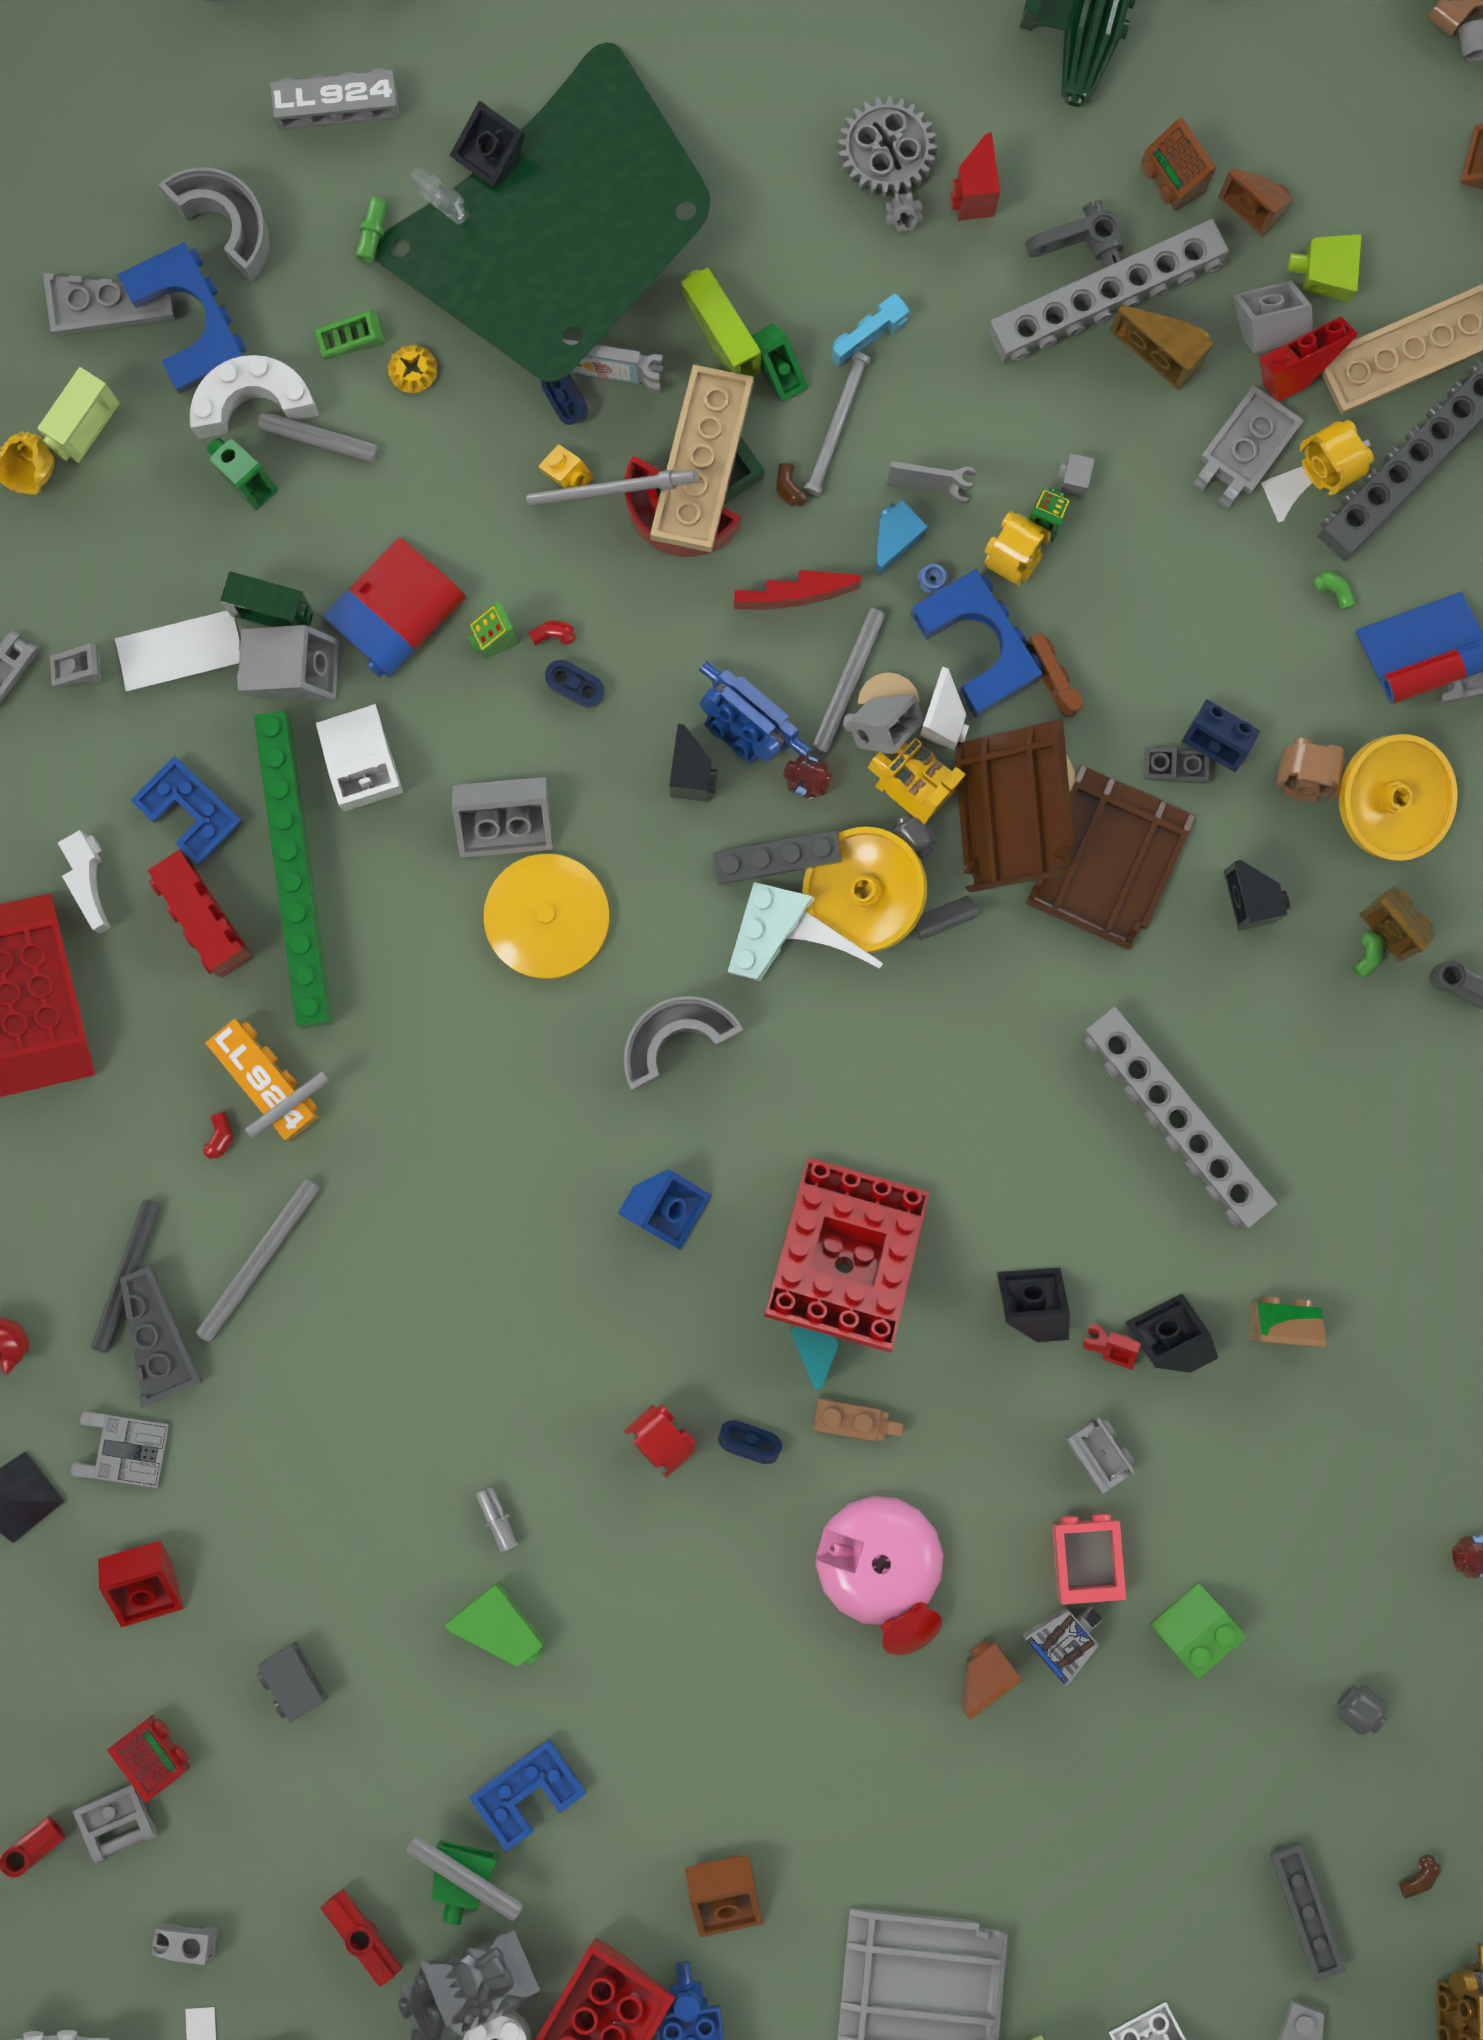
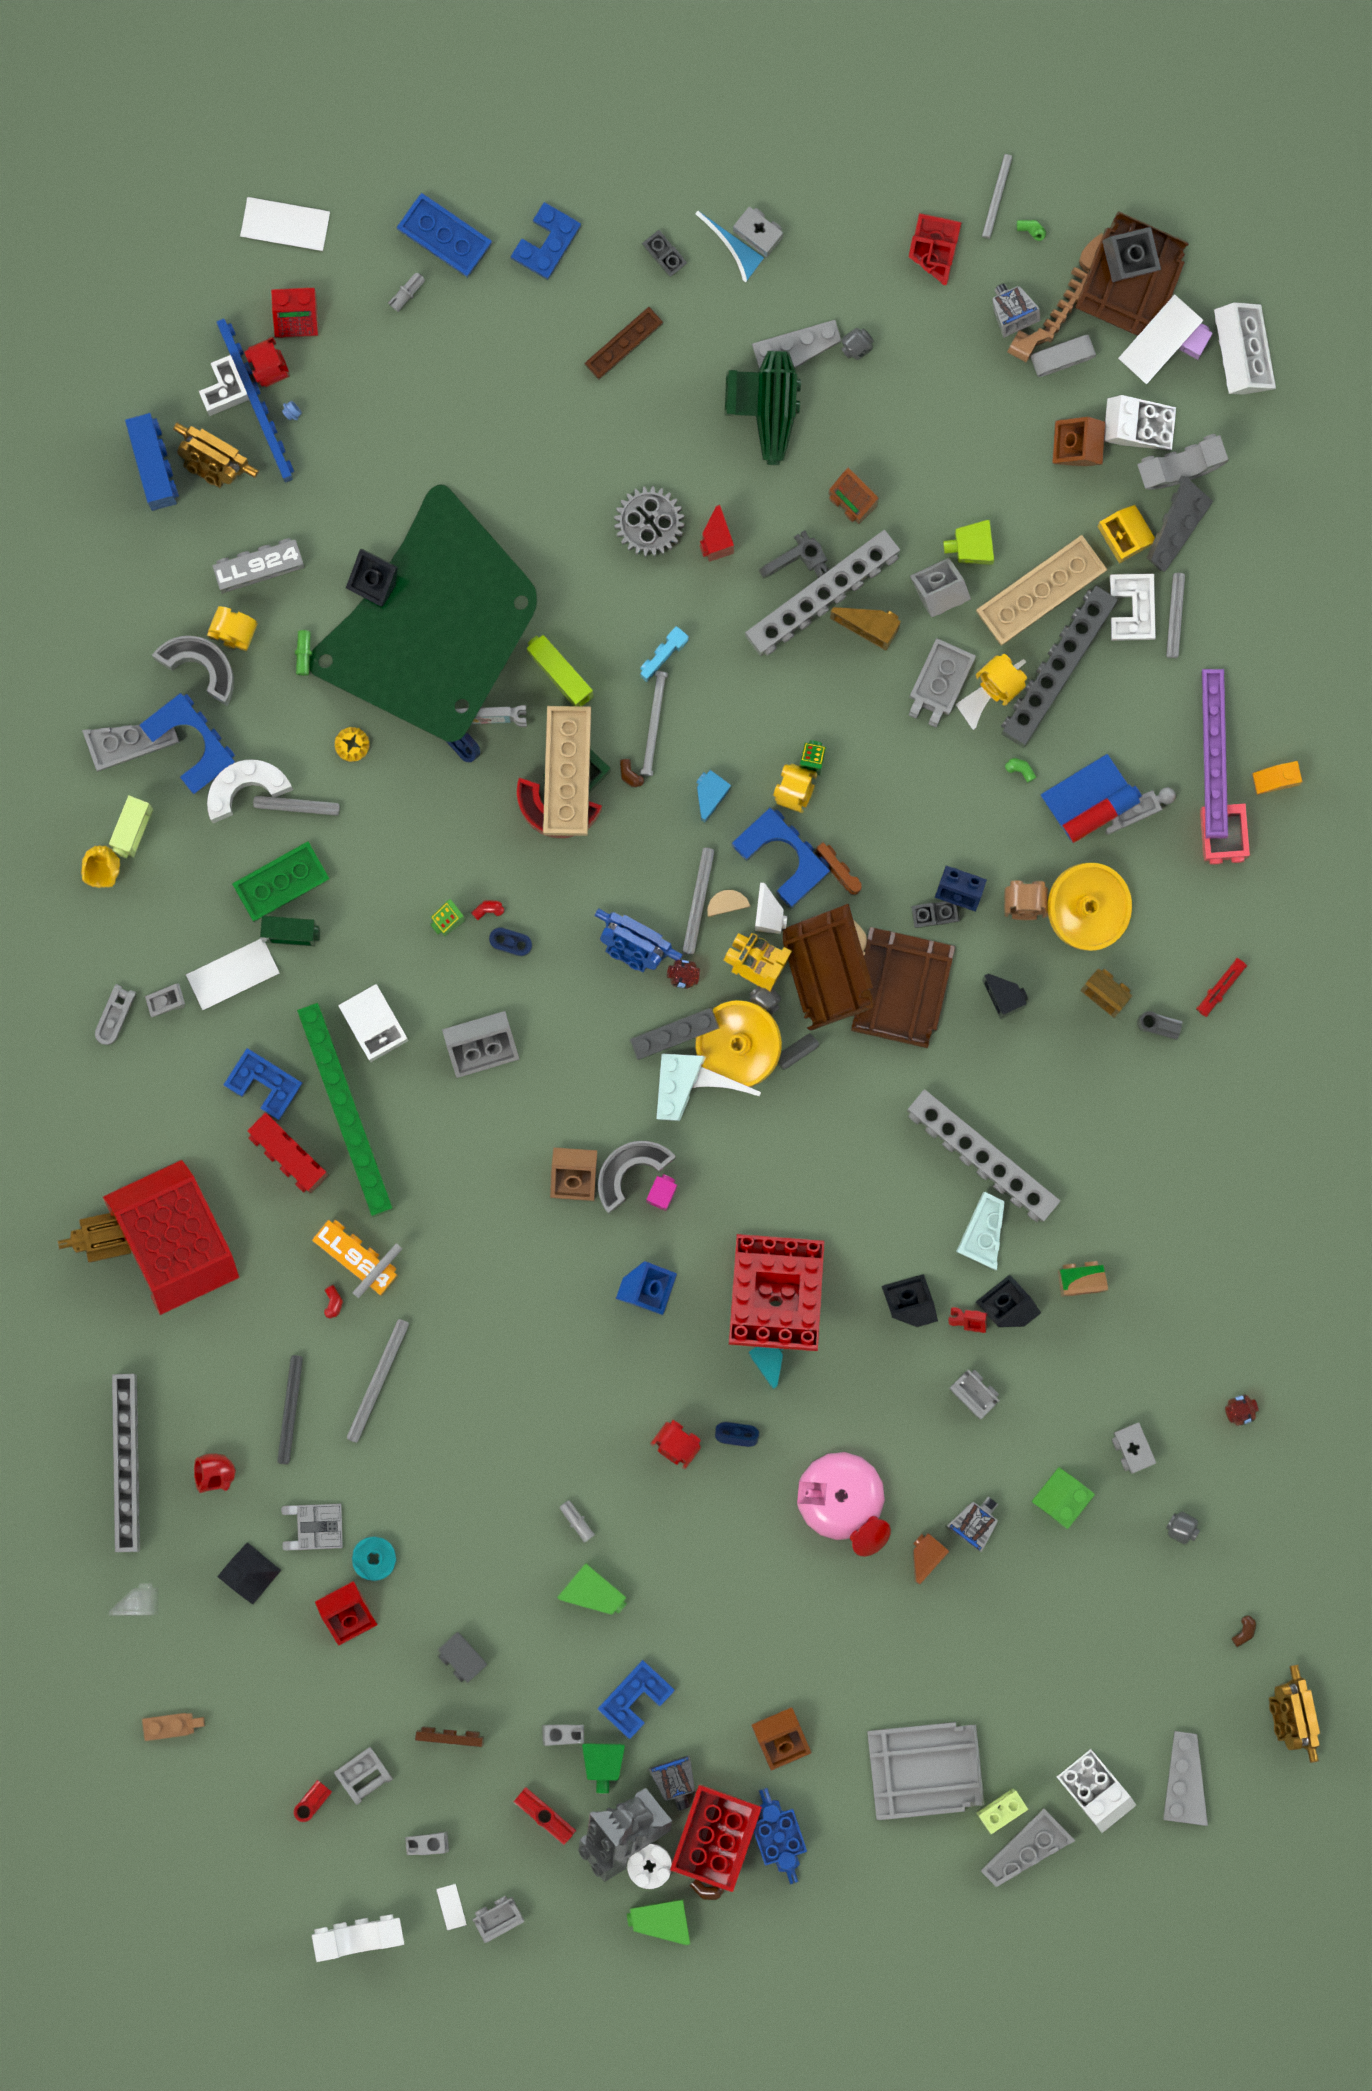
camera: 10 degrees left, 0 degrees up
(82, 880) = (199, 1130): white slope -> none
(149, 1758) = (378, 1724): red slope -> none
(158, 1344) = (324, 1453): dark grey wing -> none
(193, 1531) = (361, 1557): none -> teal plate
(224, 1791) = (428, 1734): none -> reddish brown plate
(241, 471) = (250, 841): green torso -> none
(273, 535) = (281, 881): none -> green plate
(279, 173) = (232, 628): none -> yellow brick
(288, 663) = (311, 968): light grey slope -> none
(347, 324) = (314, 732): bright green slope -> none
(394, 607) = (375, 914): red door -> none
(407, 1822) = (562, 1734): none -> light grey leg
(433, 191) = (339, 616): clear plate -> none
(464, 1878) = (605, 1759): light grey axle -> none
(546, 916) = (524, 1106): yellow dish -> none
(558, 1924) = (675, 1780): none -> torso
(565, 468) = (473, 794): yellow bracket -> none
(594, 1025) = (573, 1174): none -> medium nougat slope
(664, 480) = (546, 793): light grey bar -> none
(691, 769) = (603, 985): black slope -> none
(714, 1076) = (662, 1192): none -> dark pink brick
(779, 362) = (604, 689): green slope -> none
(810, 588) = (658, 843): red slope -> none
(854, 1421) = (804, 1406): medium nougat hinge -> none
(884, 723) = (729, 927): light grey torso -> none
(901, 204) = (670, 566): light grey gear -> none
(931, 479) = (725, 752): light grey flag -> none
(932, 570) = (742, 812): medium blue plate -> none
(1075, 474) = (825, 726): light grey plate -> none
(1088, 1556) = (979, 1464): window -> none
(1155, 1228) = (983, 1232): none -> light aqua wing
(1255, 199) = (913, 508): dark orange slope -> none
(1304, 358) = (966, 615): red slope -> none
(1307, 1911) = (1172, 1669): dark grey plate -> none
(1324, 1593) = (1134, 1435): none -> light grey brick
(1374, 954) = (1095, 1017): bright green arm -> none

